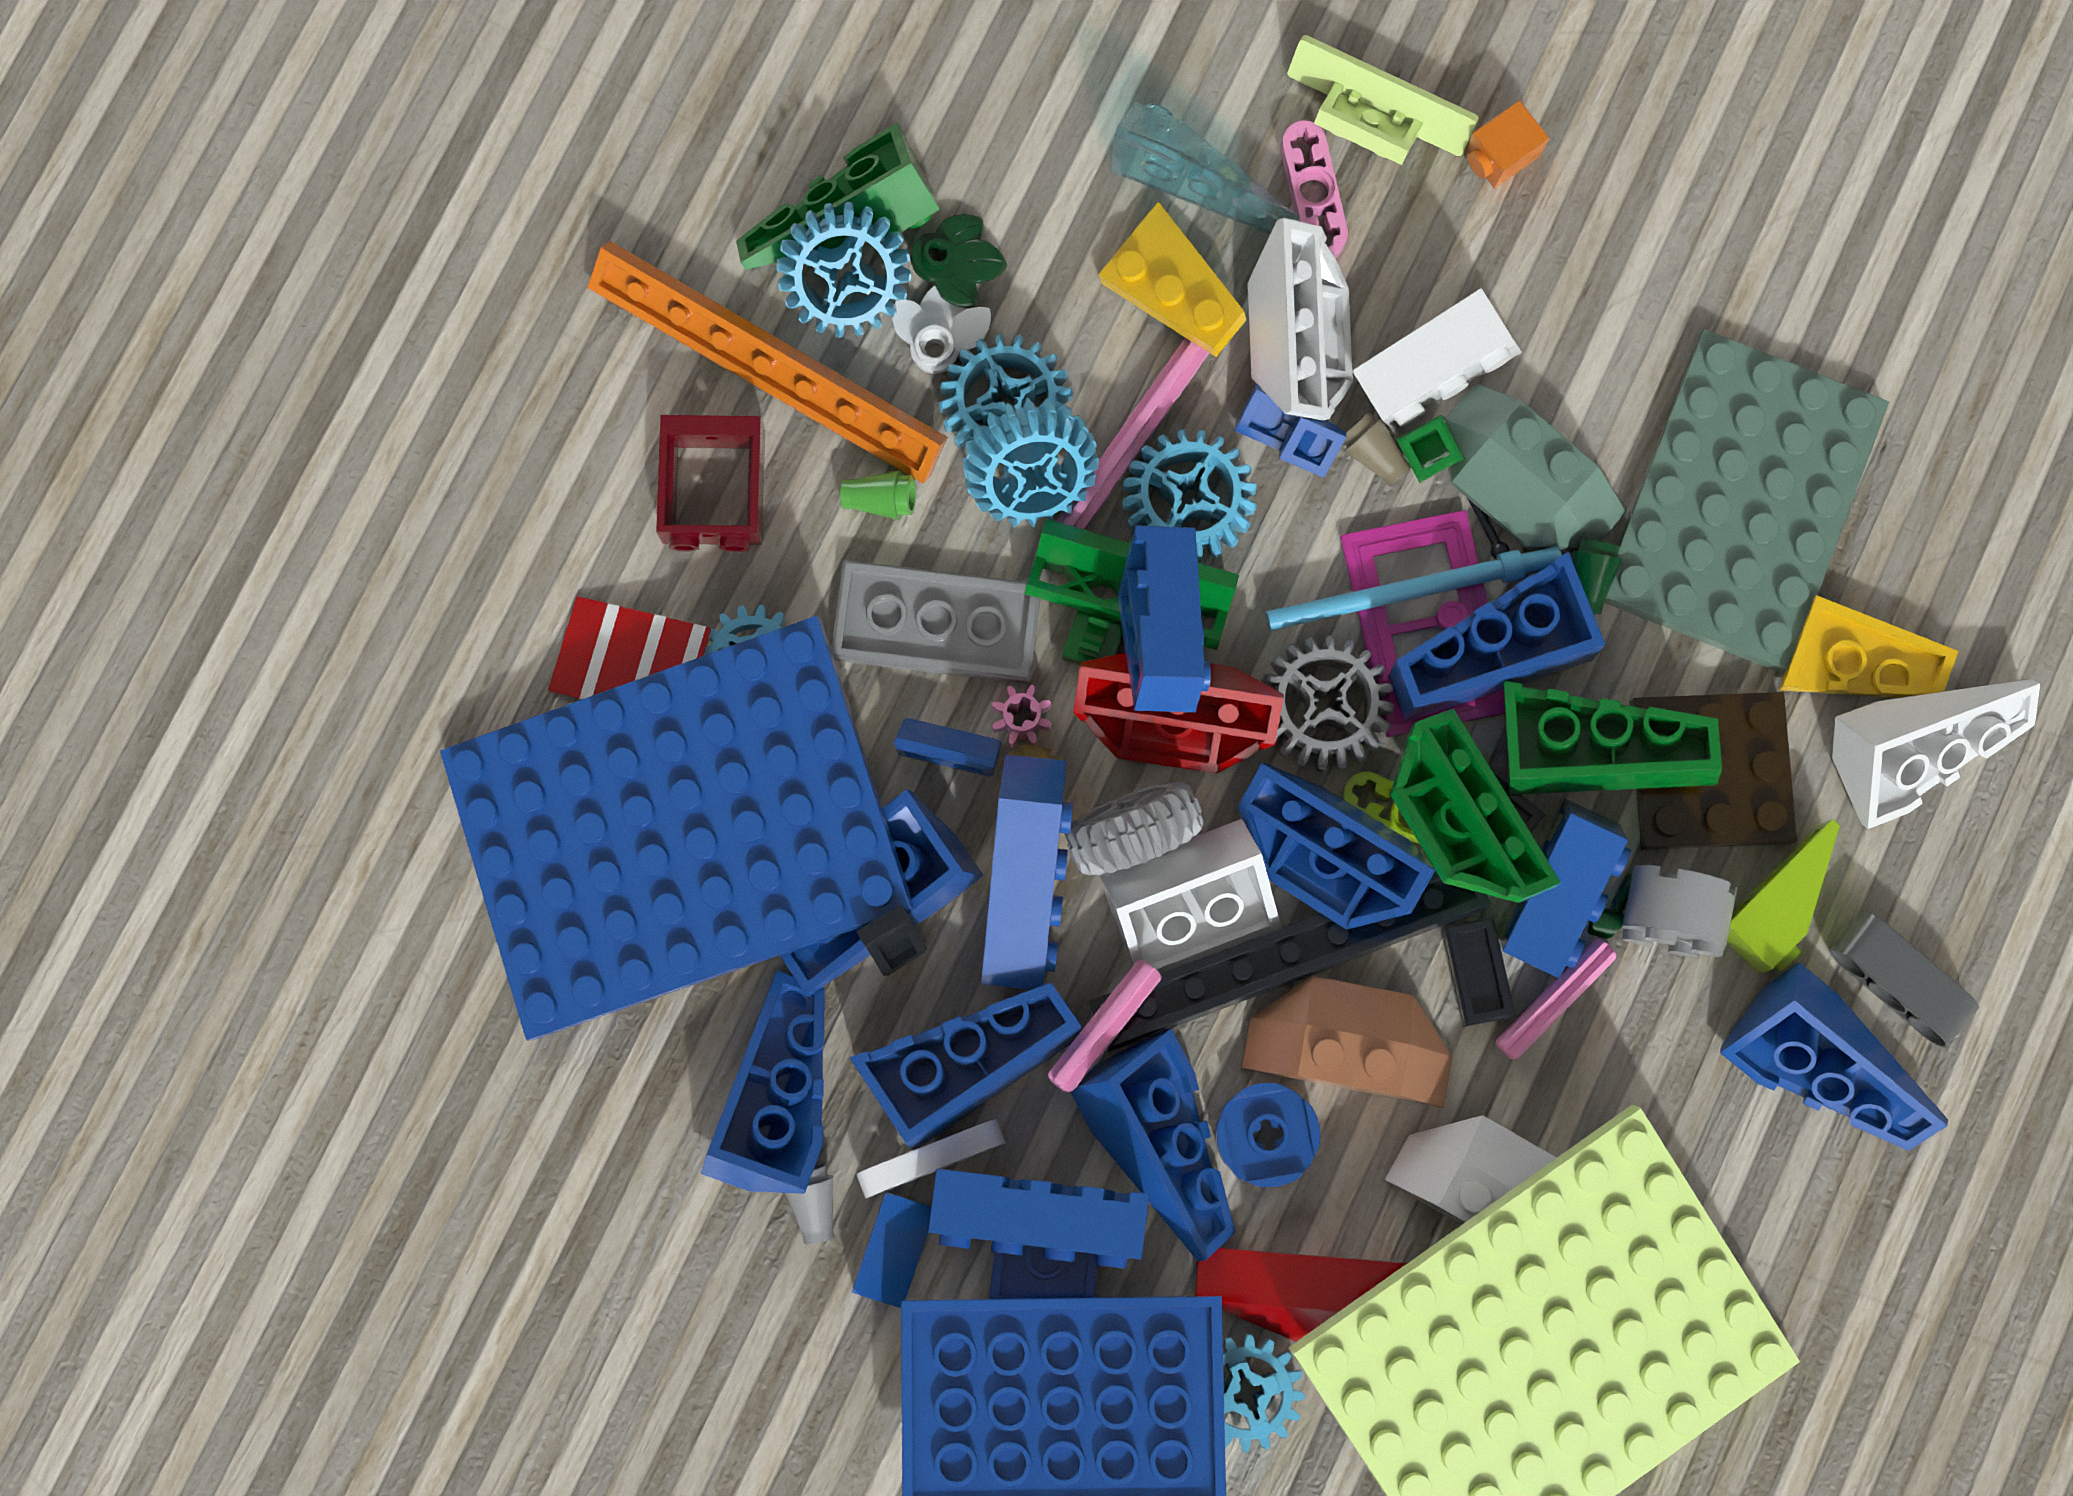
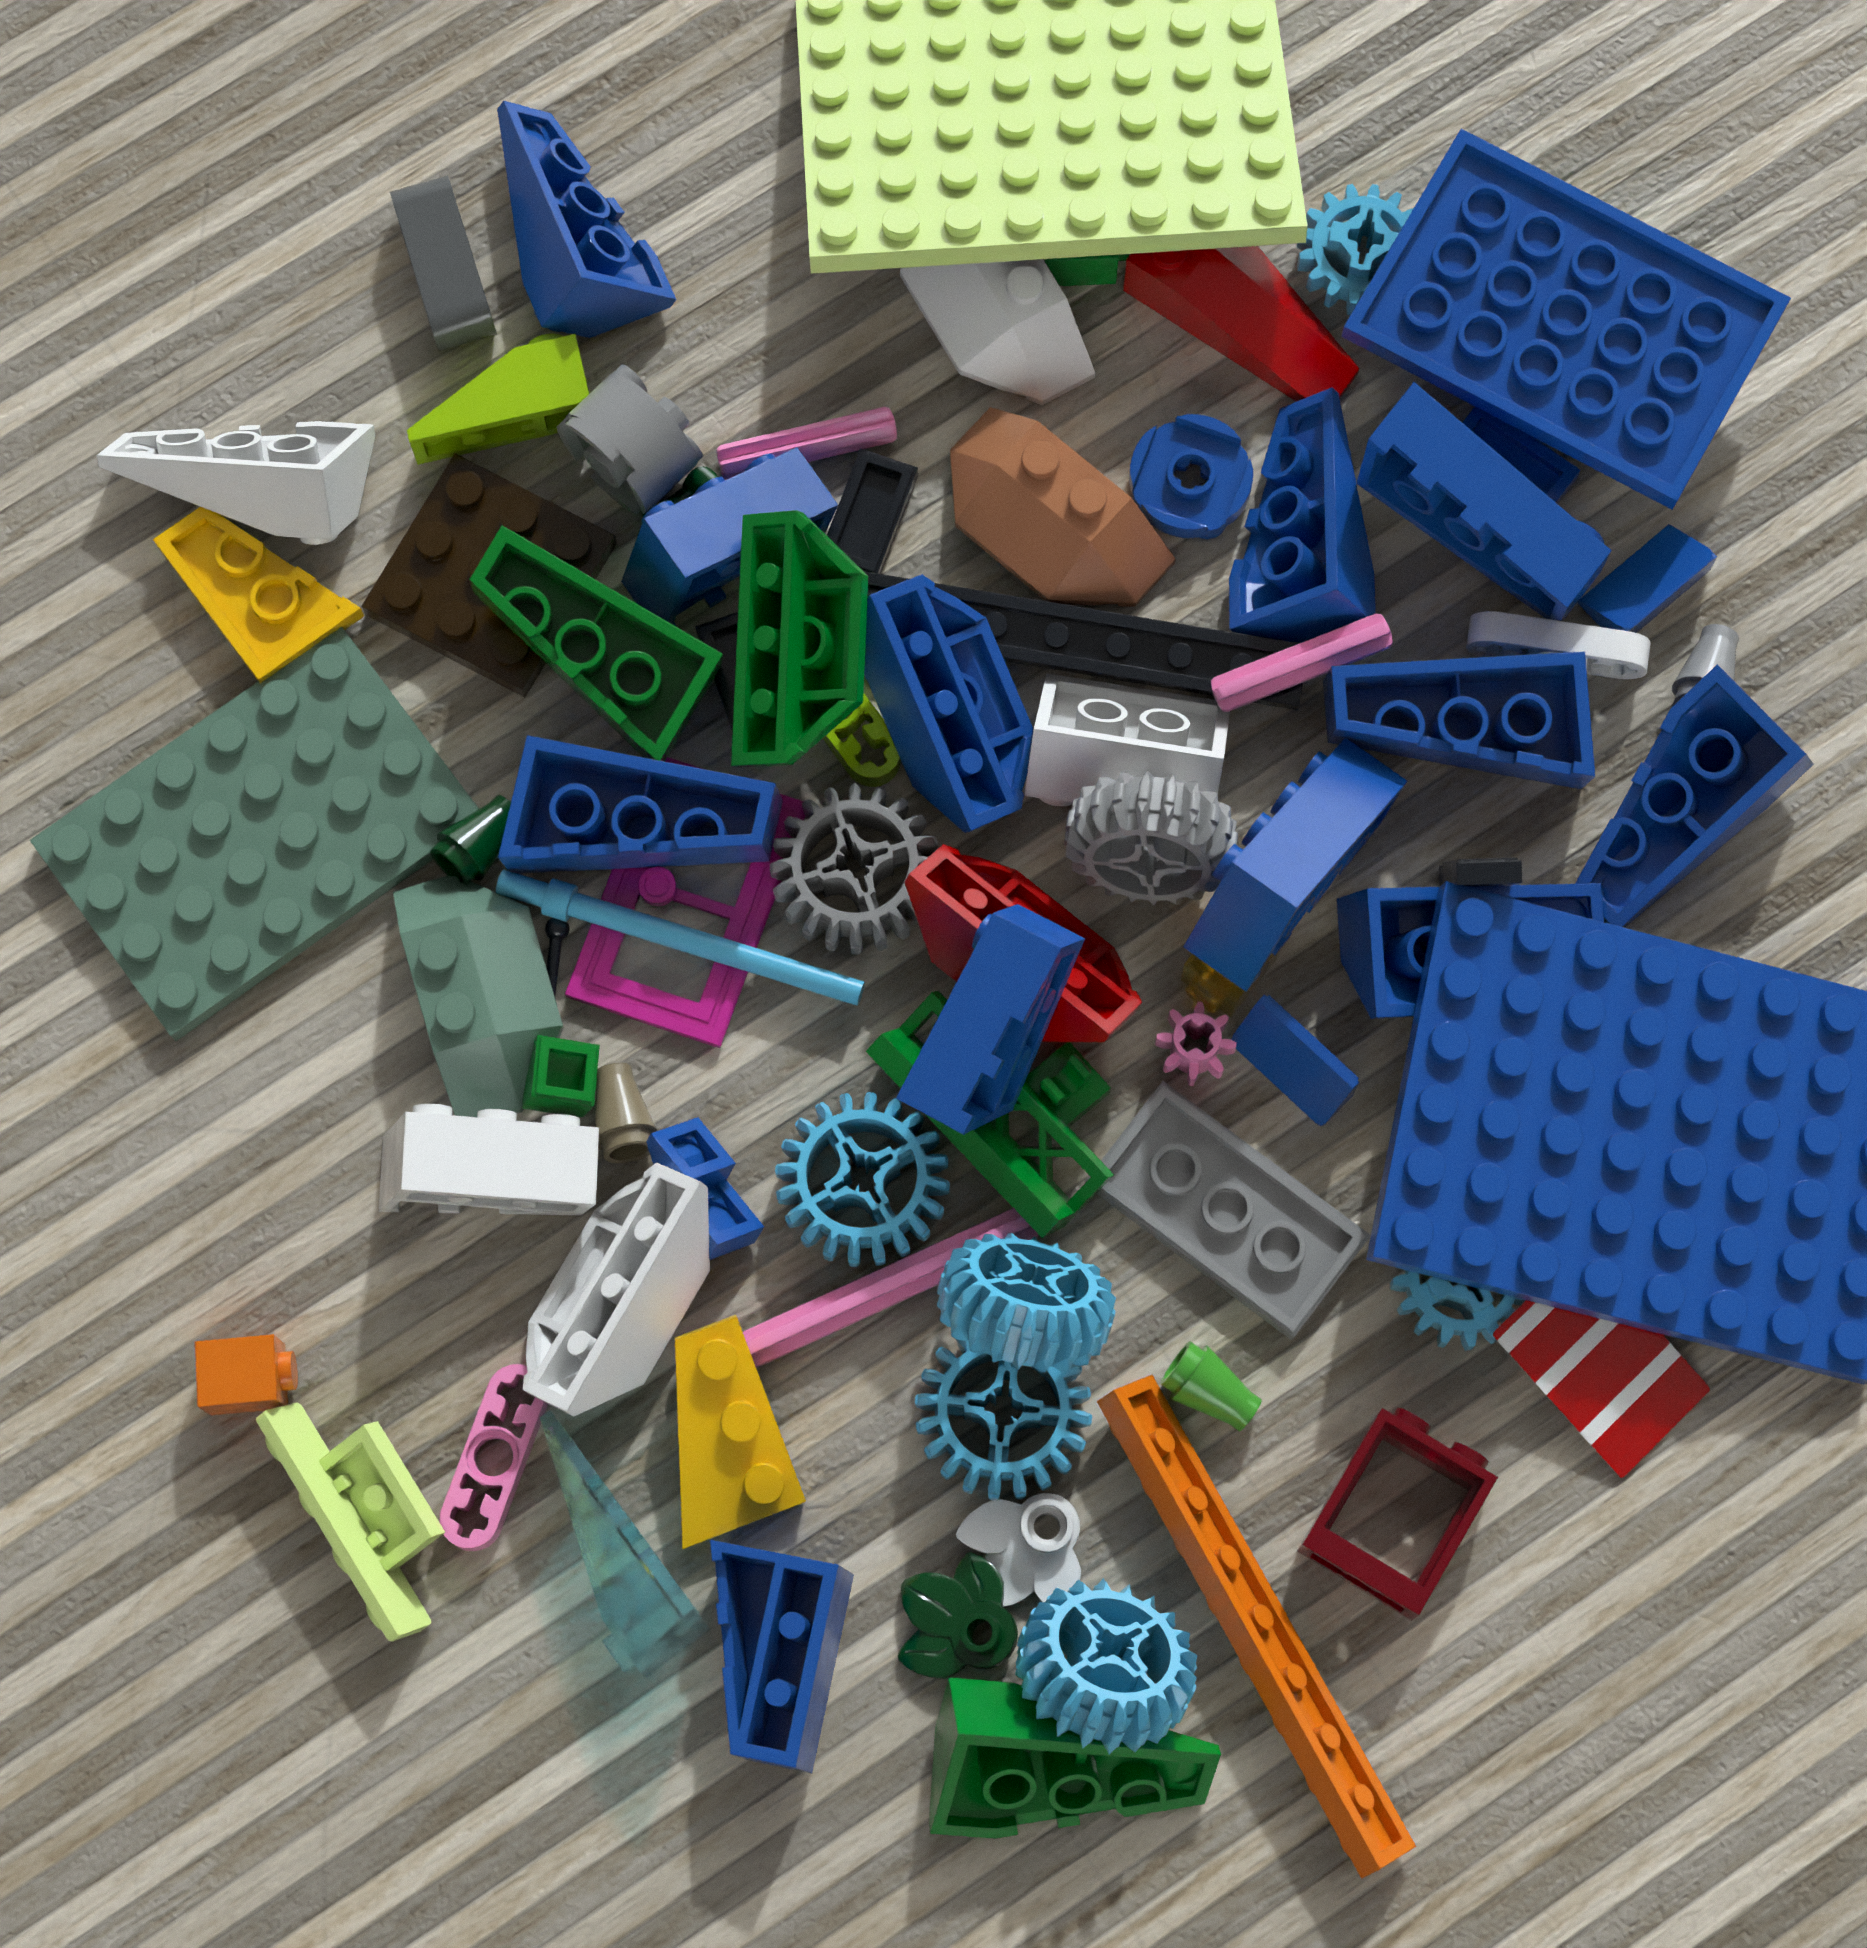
camera: 145 degrees left, 5 degrees down
(1058, 169) = (779, 1648): none -> blue wedge

